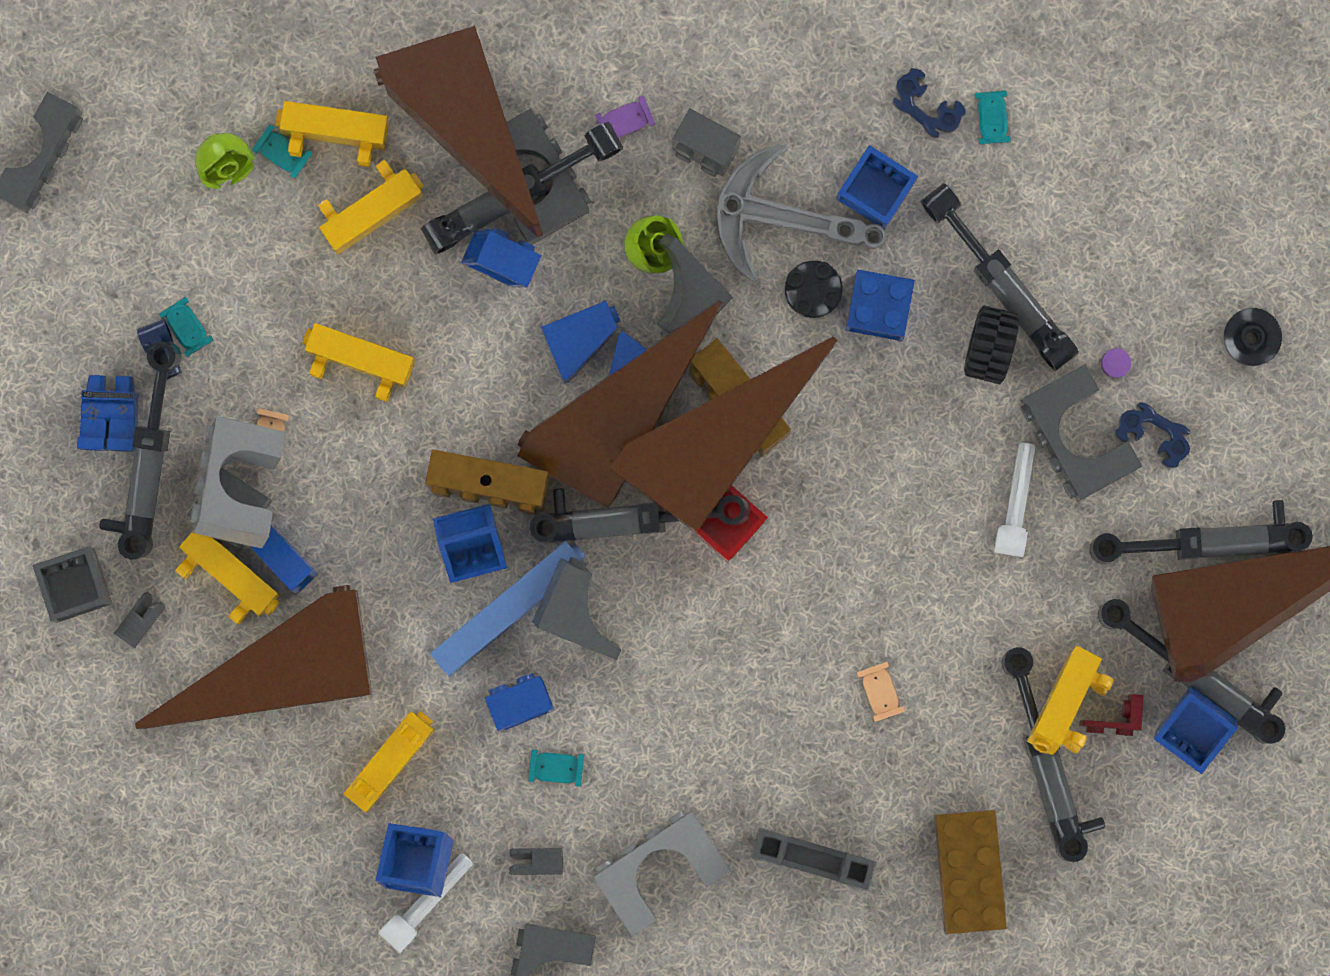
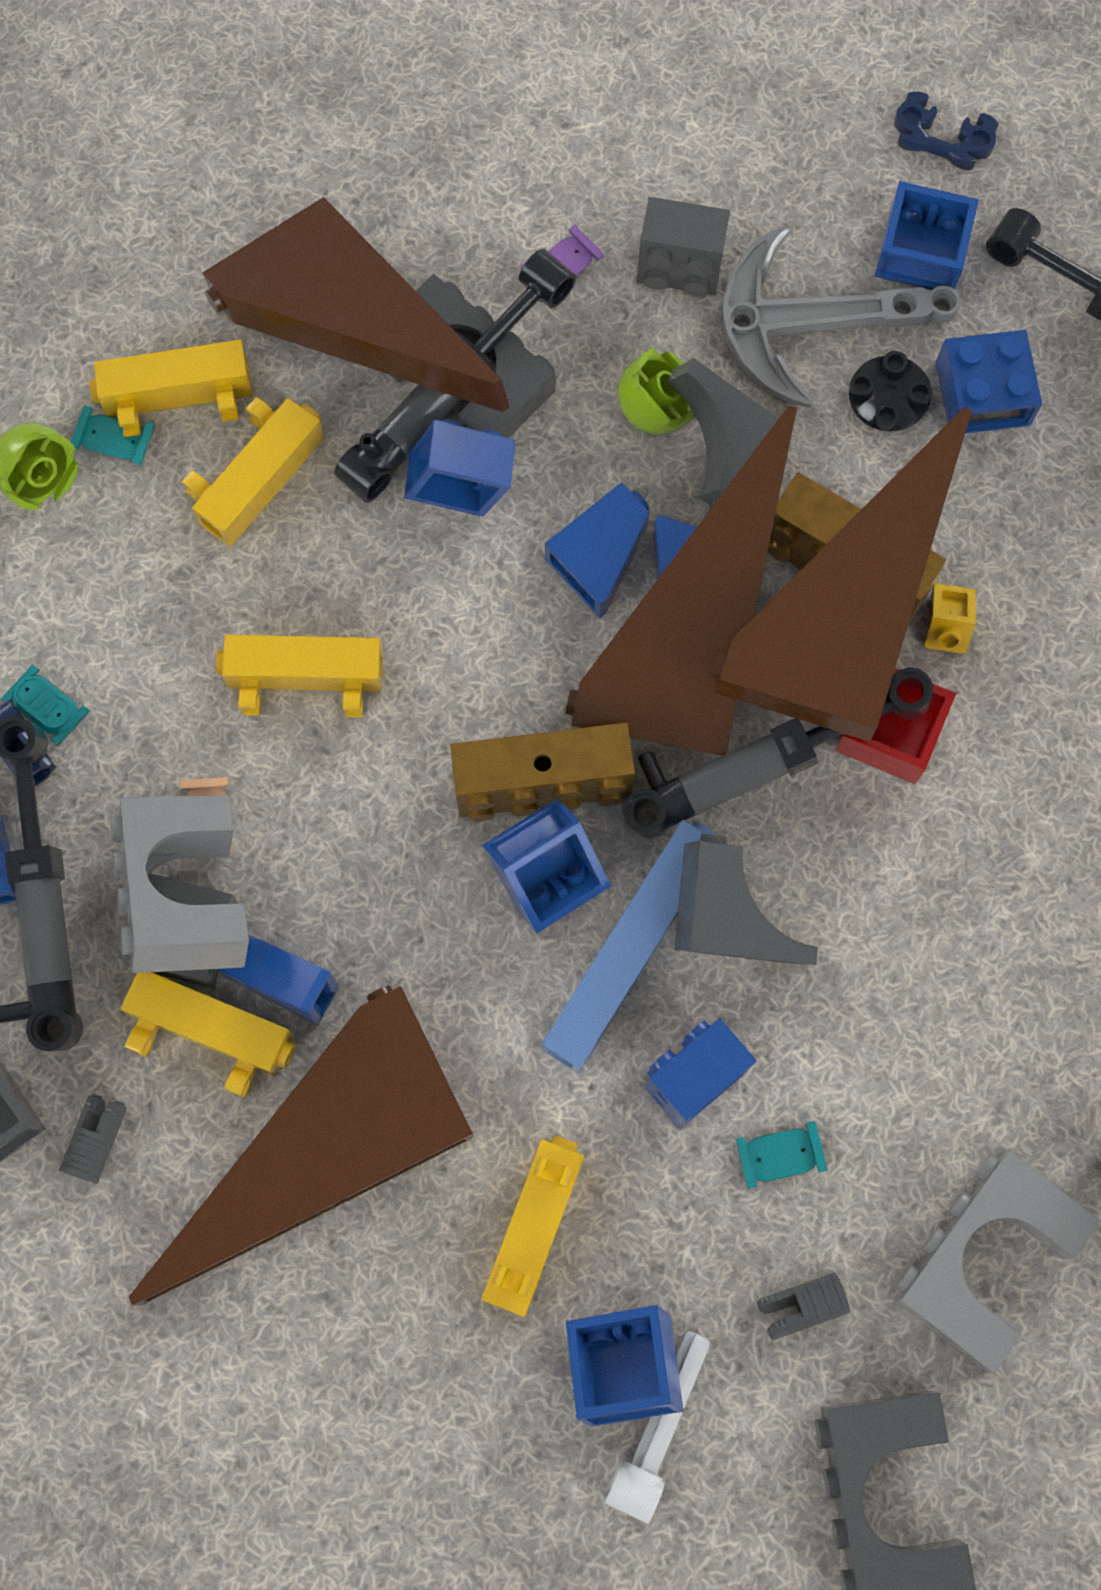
camera: 20 degrees left, 10 degrees down
(792, 460) = (951, 618): none -> yellow bracket
(992, 117) = (1032, 124): teal piece -> none

